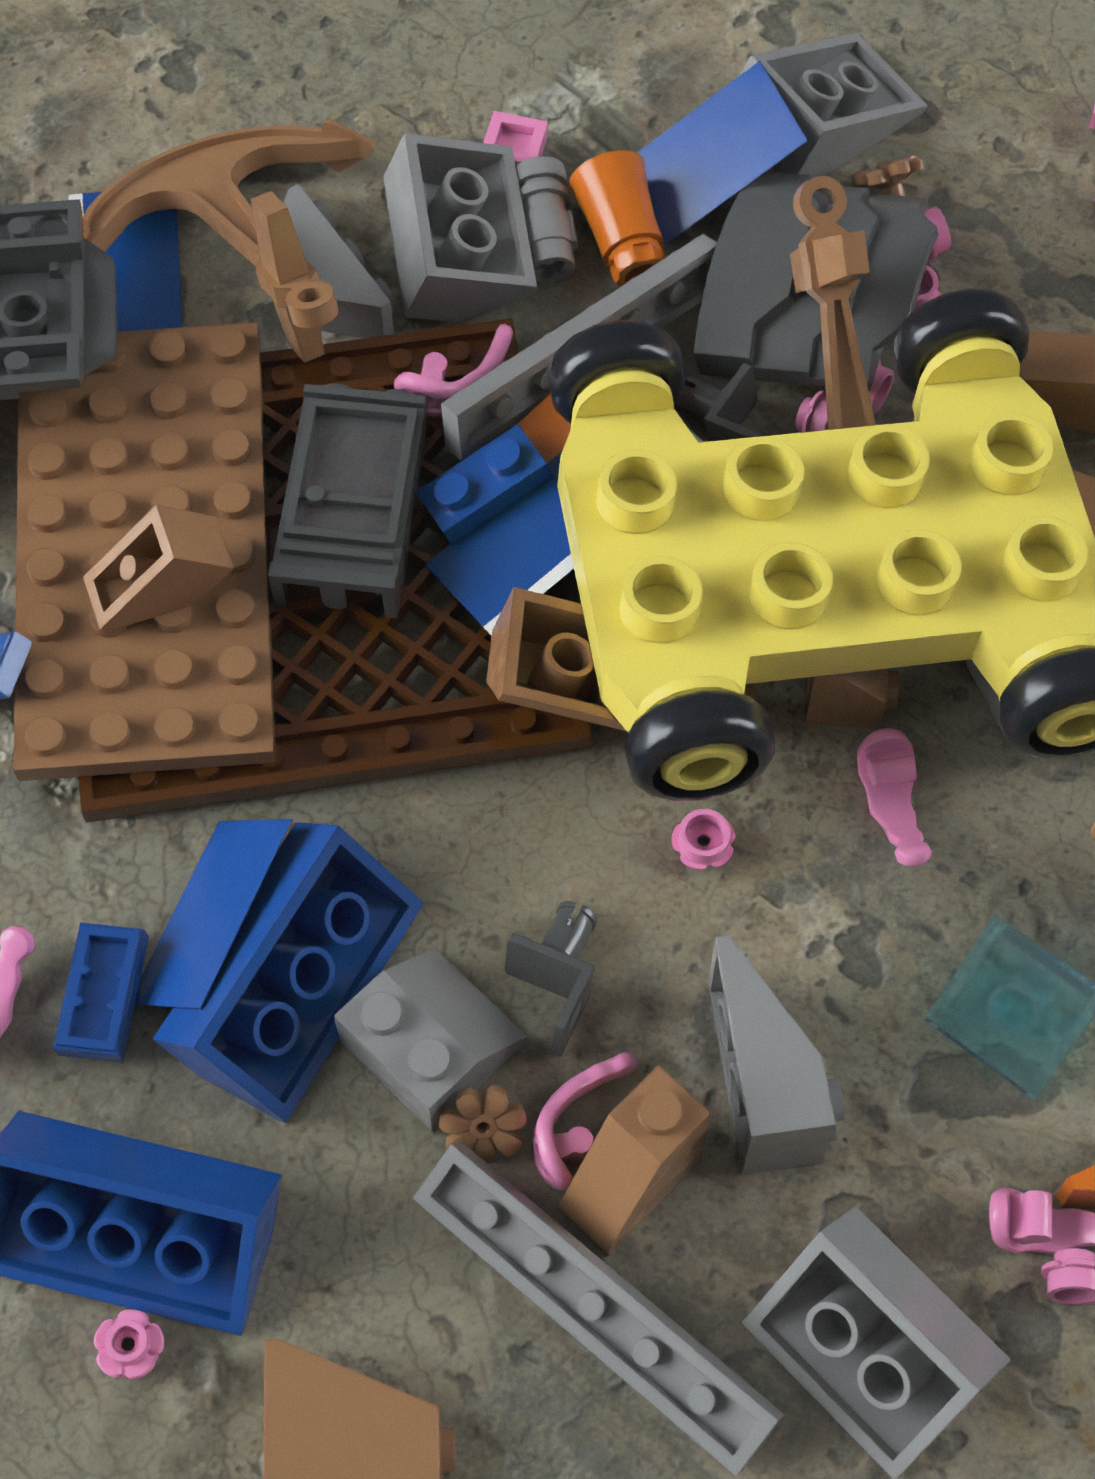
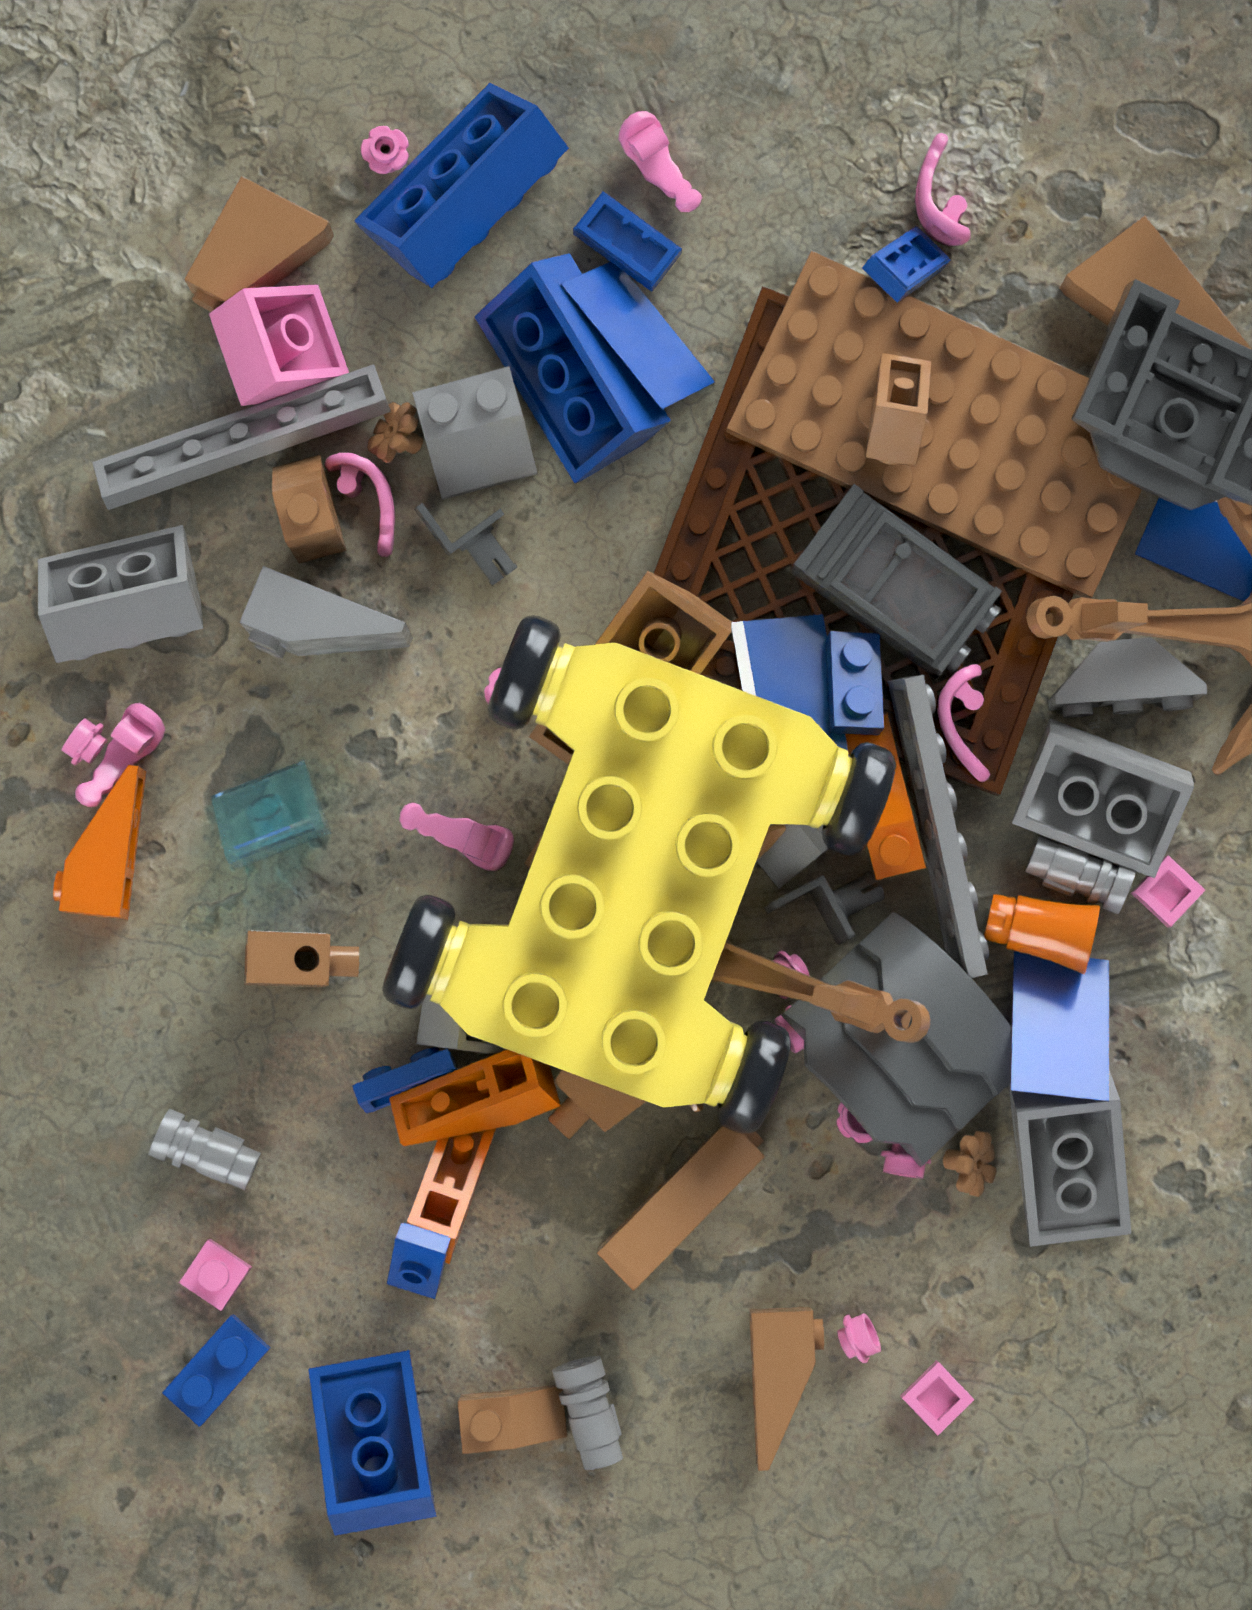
camera: 120 degrees right, 20 degrees up
(454, 1327) = (277, 341): none -> bright pink slope

